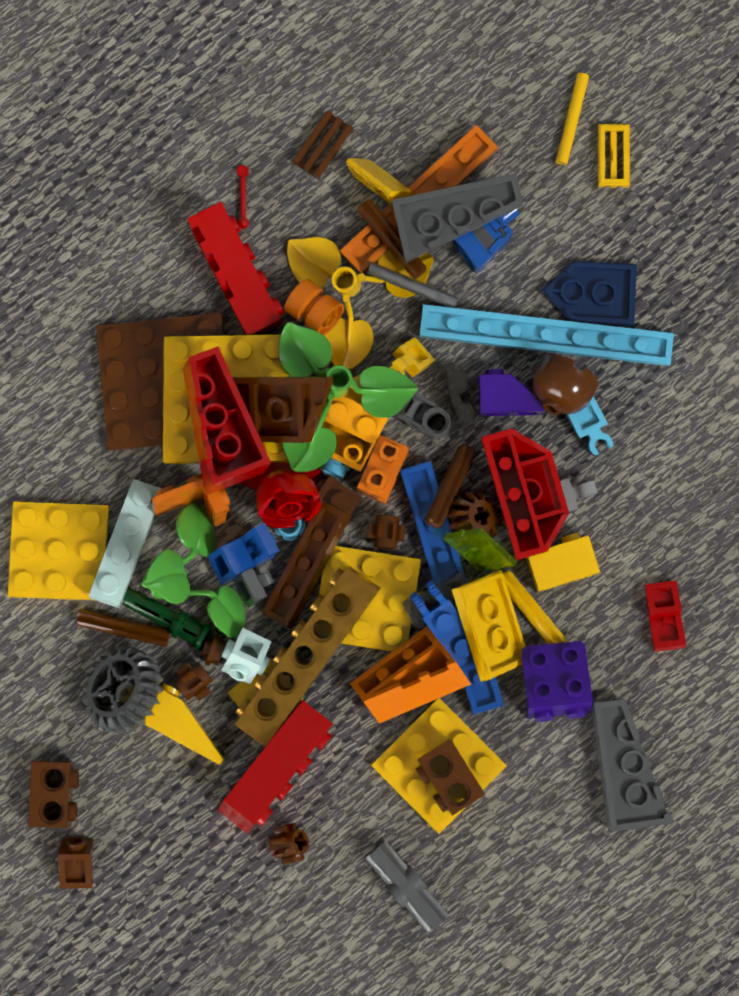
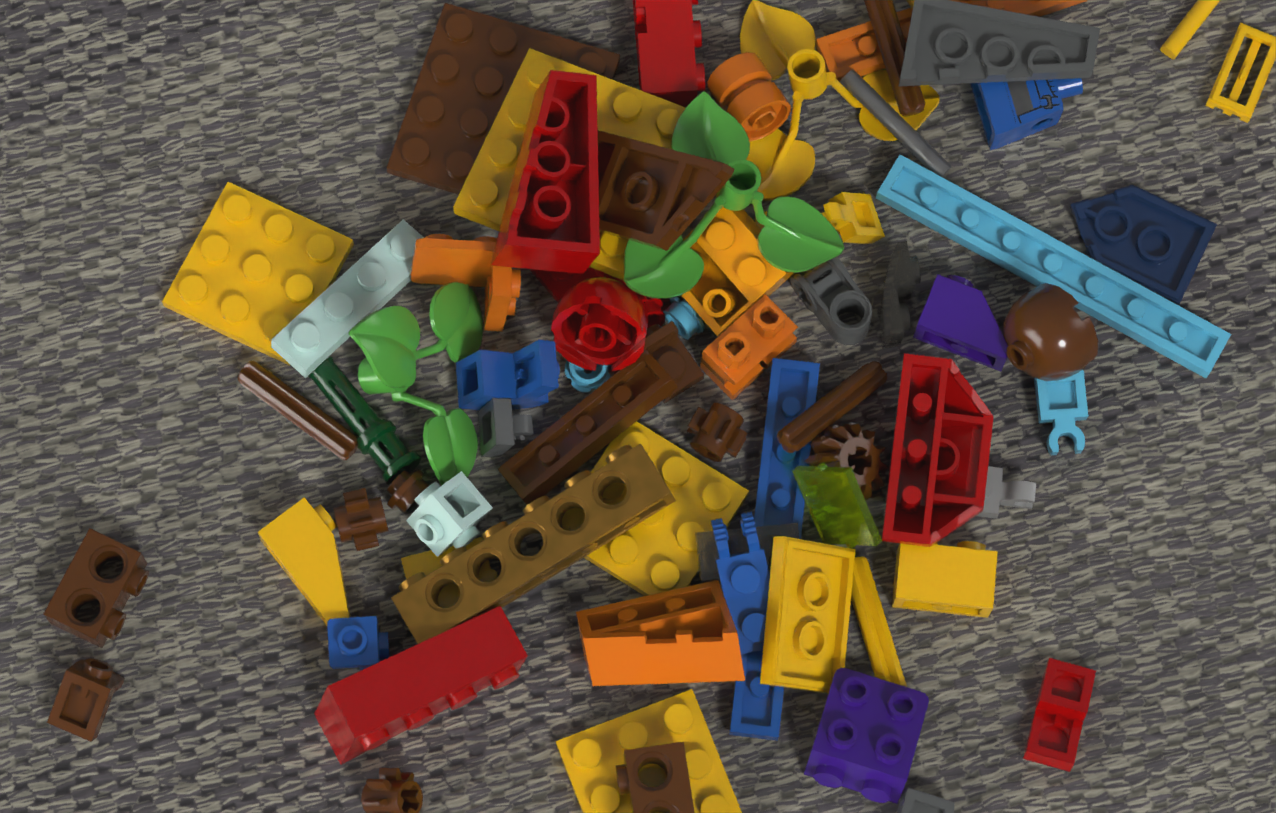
camera: 20 degrees right, 10 degrees down
(130, 694) = (258, 485): dark grey gear -> none
(226, 761) = (356, 642): none -> blue bracket

